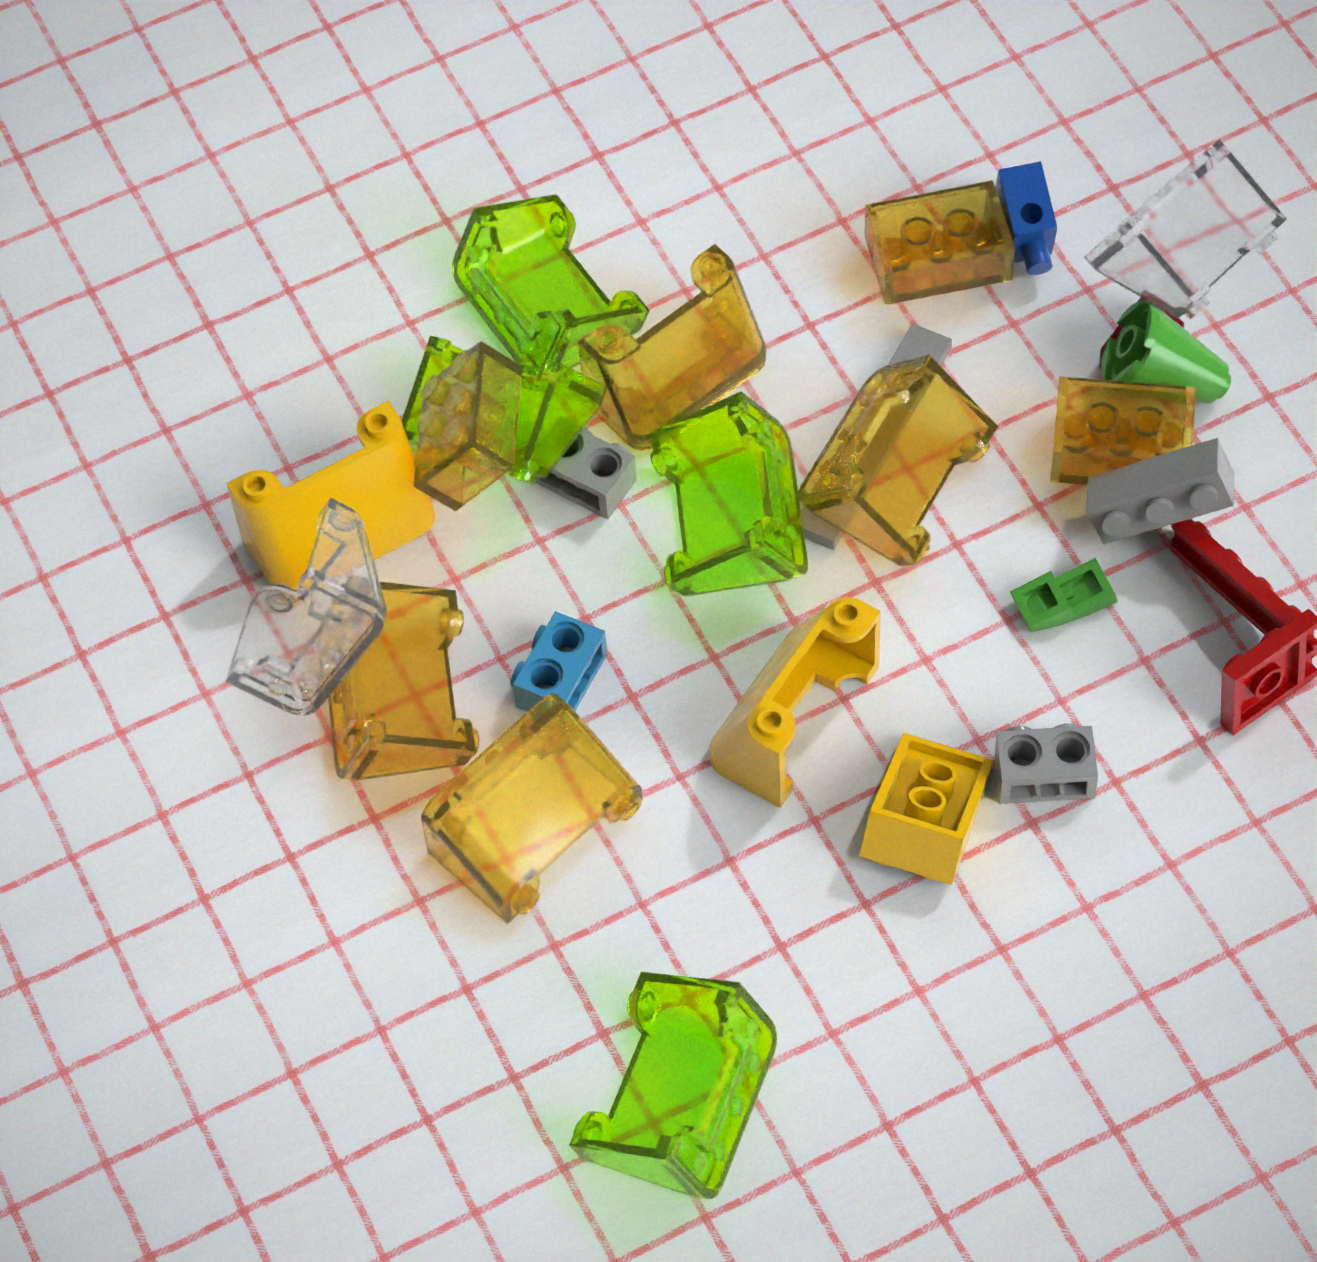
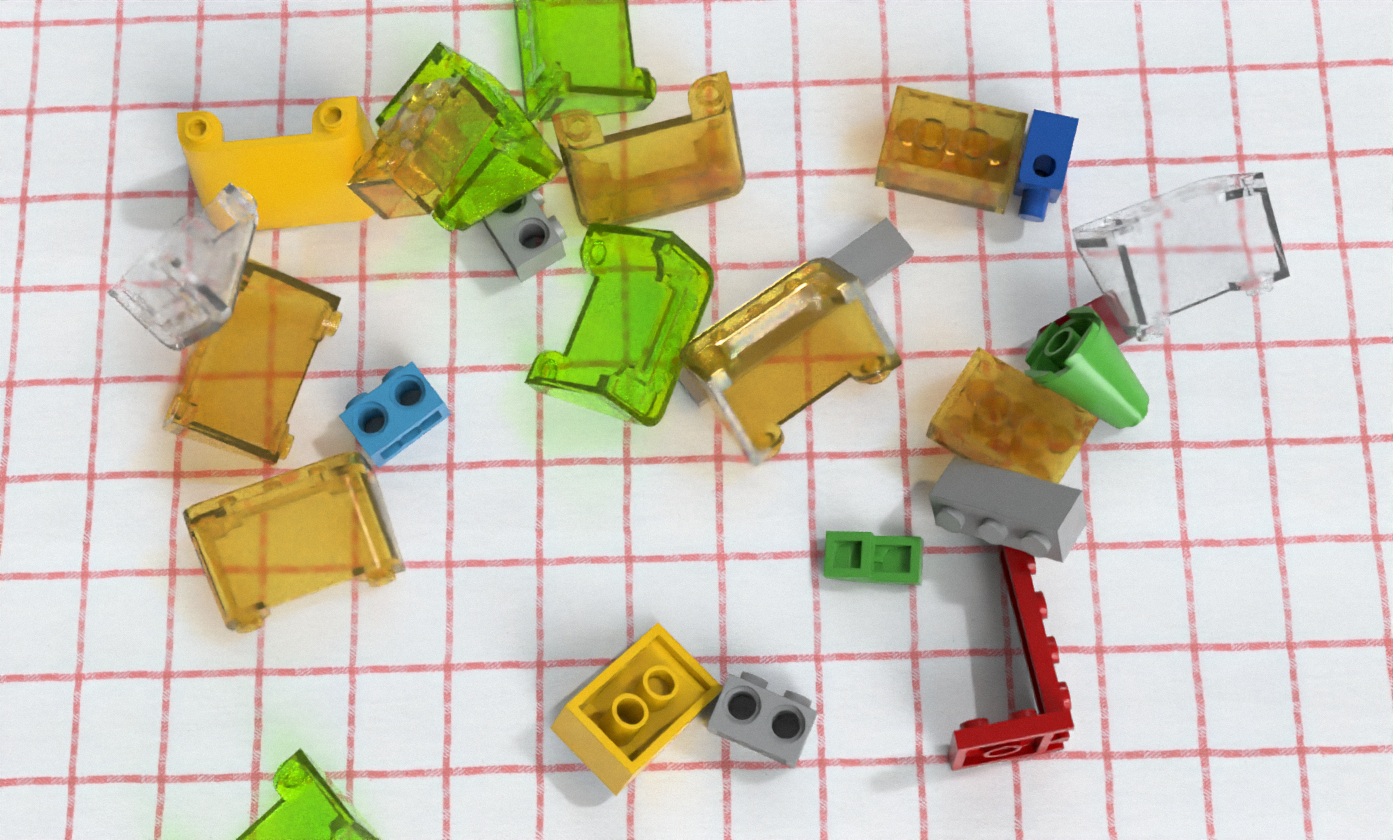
camera: 30 degrees right, 15 degrees up
(825, 648) = (610, 504): yellow windscreen -> none

